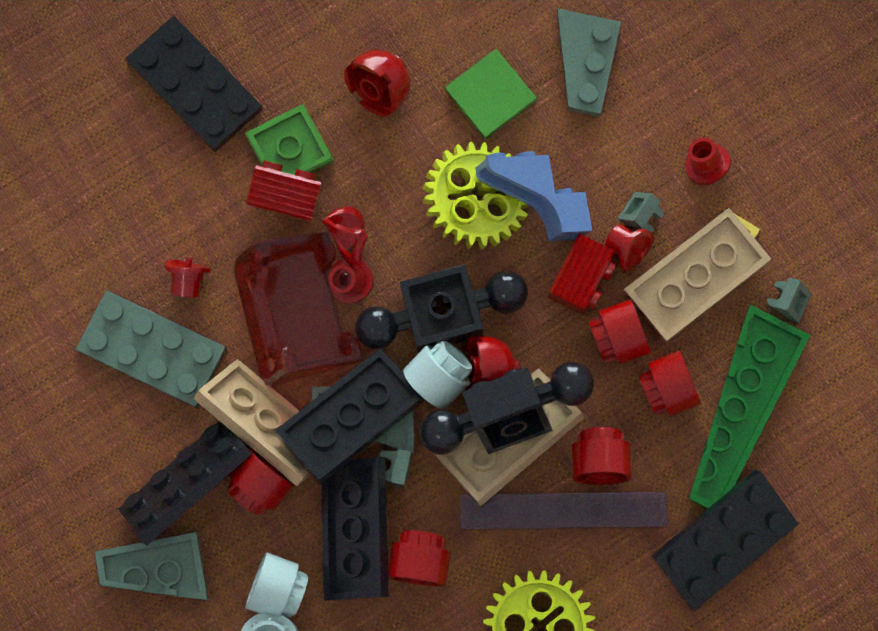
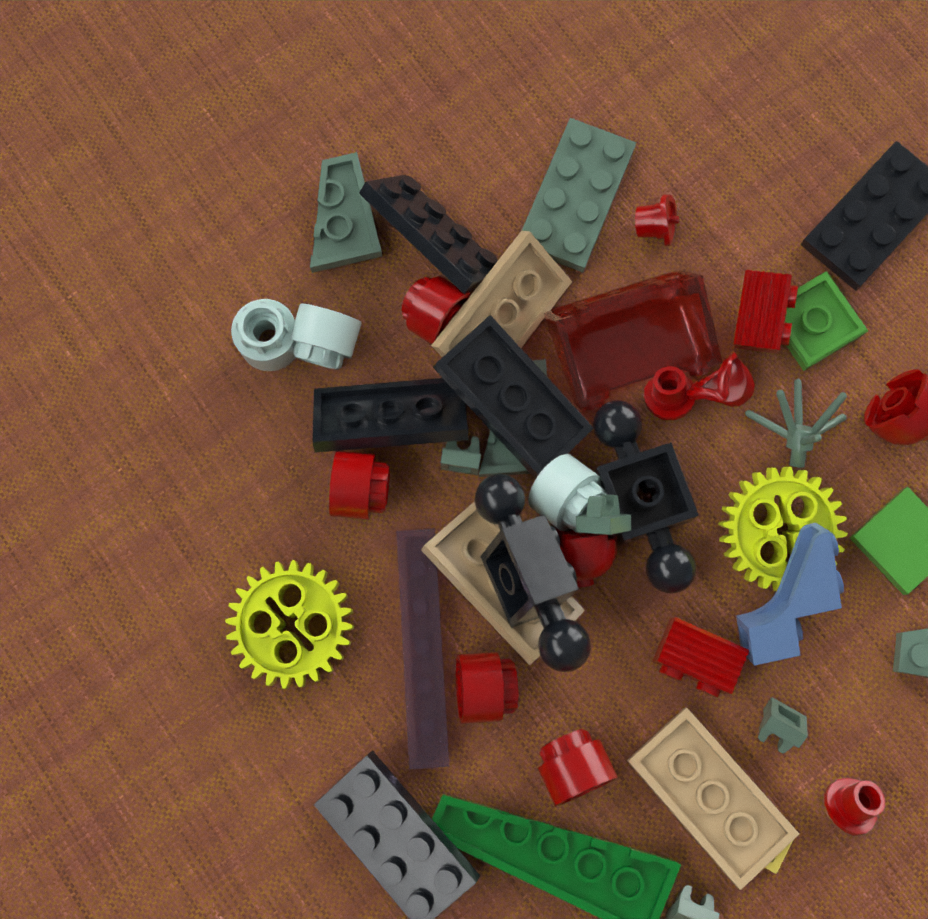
camera: 85 degrees right, 0 degrees up
(395, 172) = (799, 436): none -> sand green plant
(464, 344) = (603, 516): none -> sand green tile
(619, 334) = (632, 703): red piece -> none
(629, 245) = (740, 712): red piece -> none

